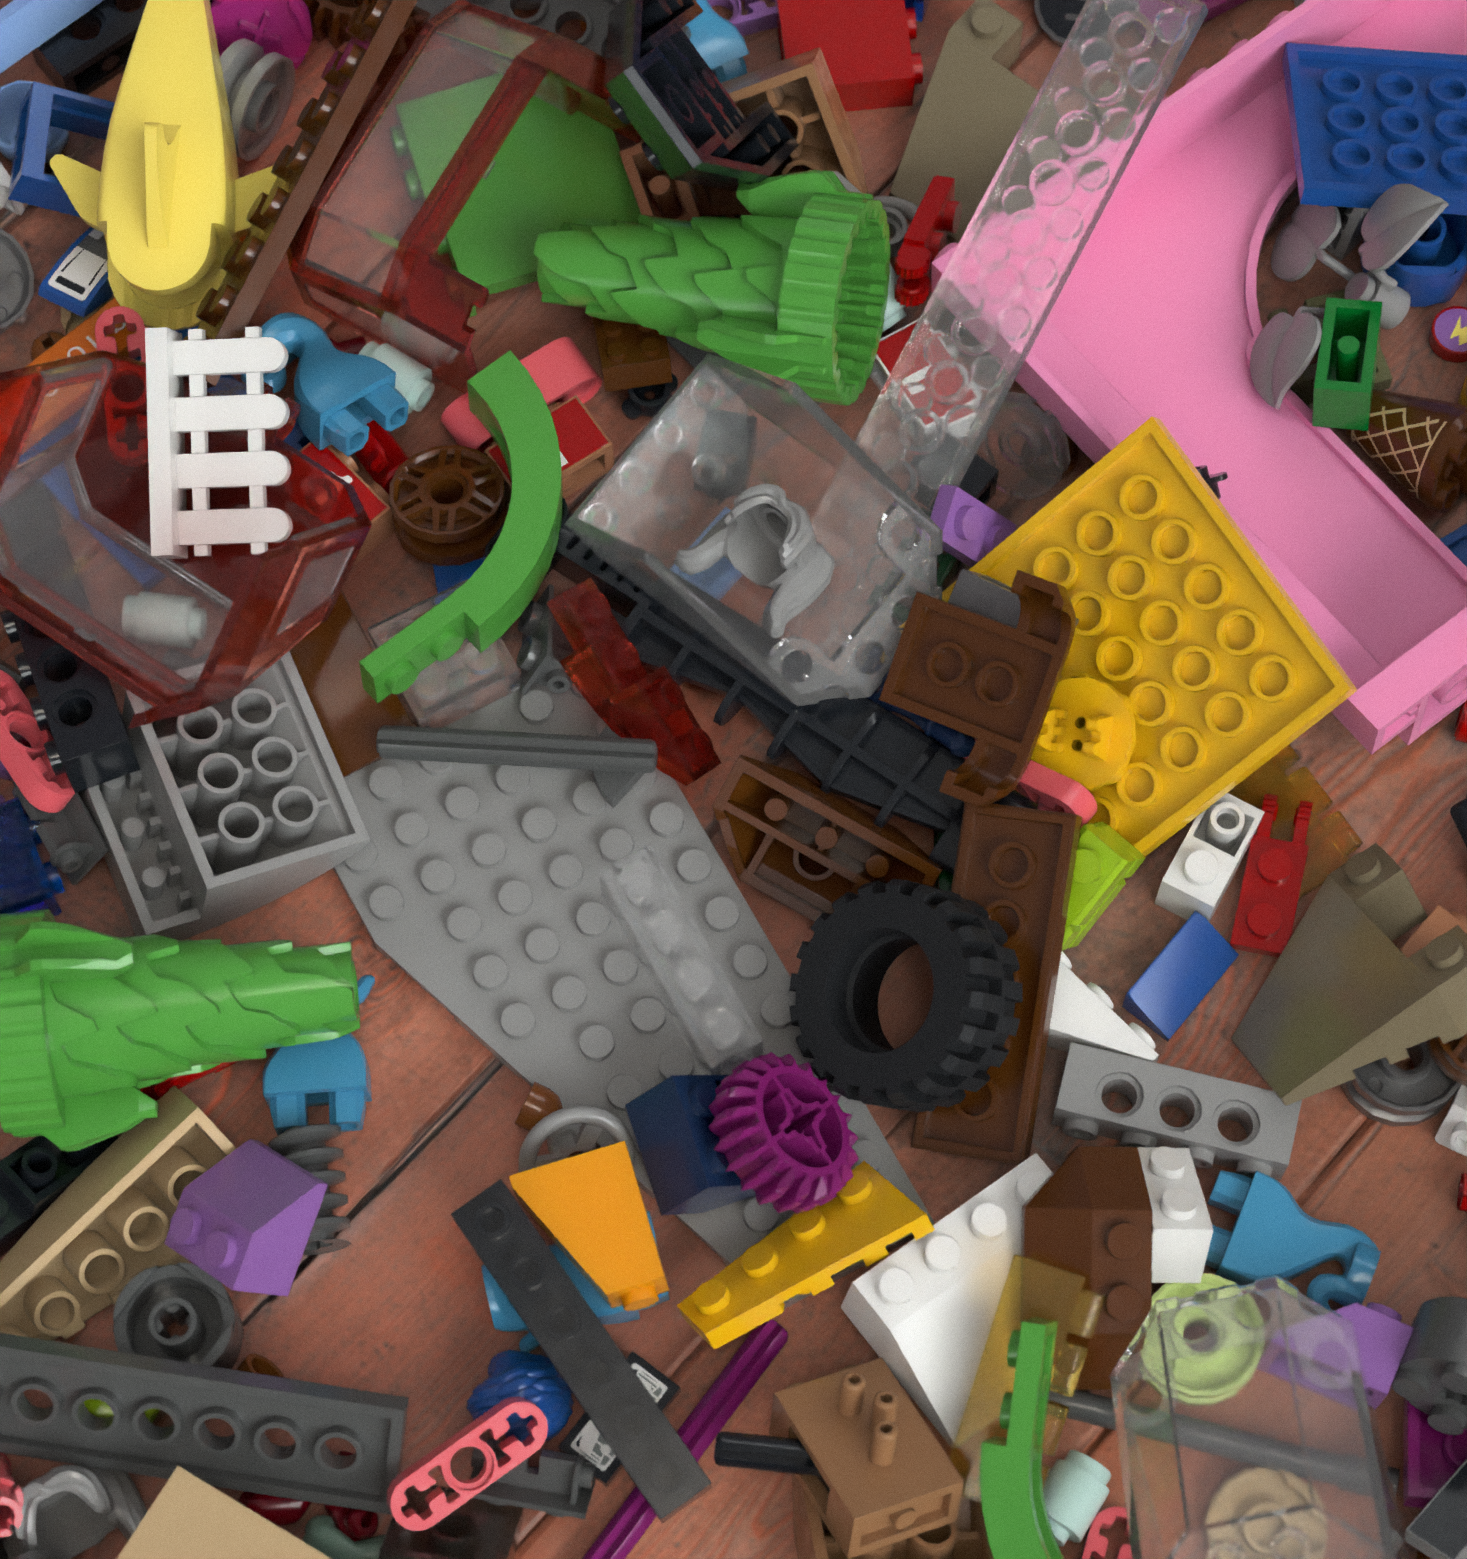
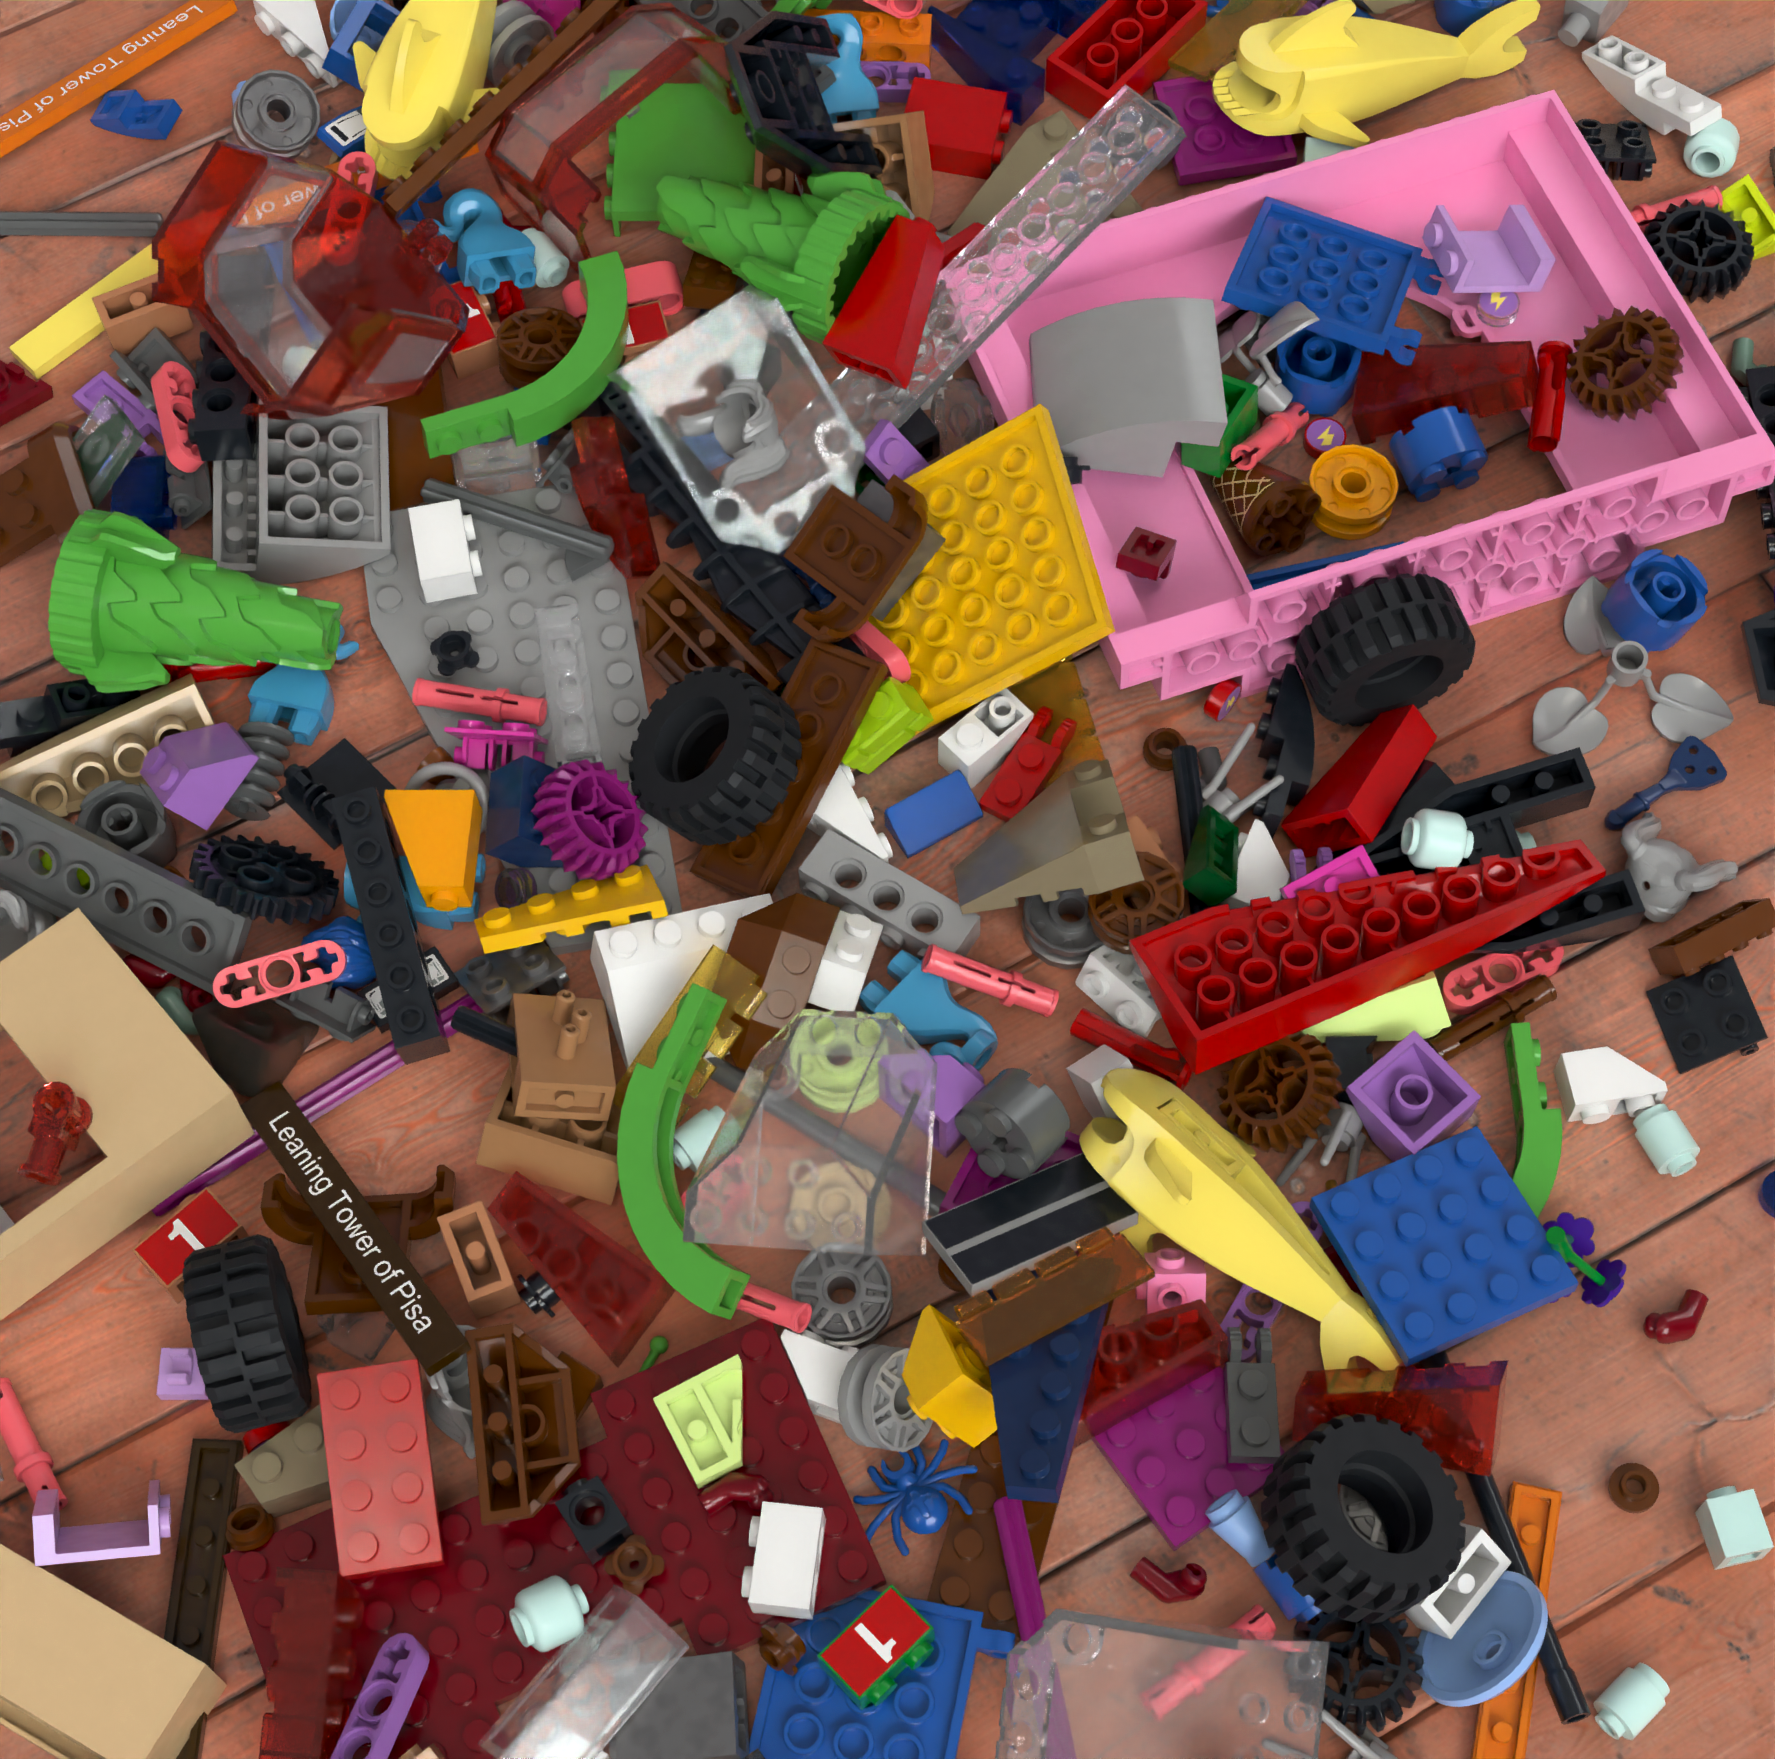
camera: 20 degrees right, 5 degrees down
(173, 415) = (367, 225): white fence -> none
(392, 1342) = (264, 879): none -> black gear
(420, 1180) = (332, 775): none -> black hinge
(440, 820) = (443, 550): none -> white brick
(505, 935) = (451, 642): none -> black plate
(566, 1009) = (496, 704): none -> coral pin
(642, 1045) = (478, 735): none -> dark pink hinge
(706, 1244) = (514, 887): none -> clear smoke tile
(748, 1371) = (520, 970): none -> flat silver hinge
(899, 336) = (890, 304): none -> red slope
(1105, 738) = (919, 618): yellow plate -> none
(1228, 341) = (1131, 382): none -> light grey slope
(1334, 566) = (1147, 554): none -> dark red bracket
(1366, 1177) = (1007, 987): none -> coral pin
(1403, 347) = (1275, 431): none -> coral pin
(1432, 788) = (1159, 739): none -> reddish brown plate

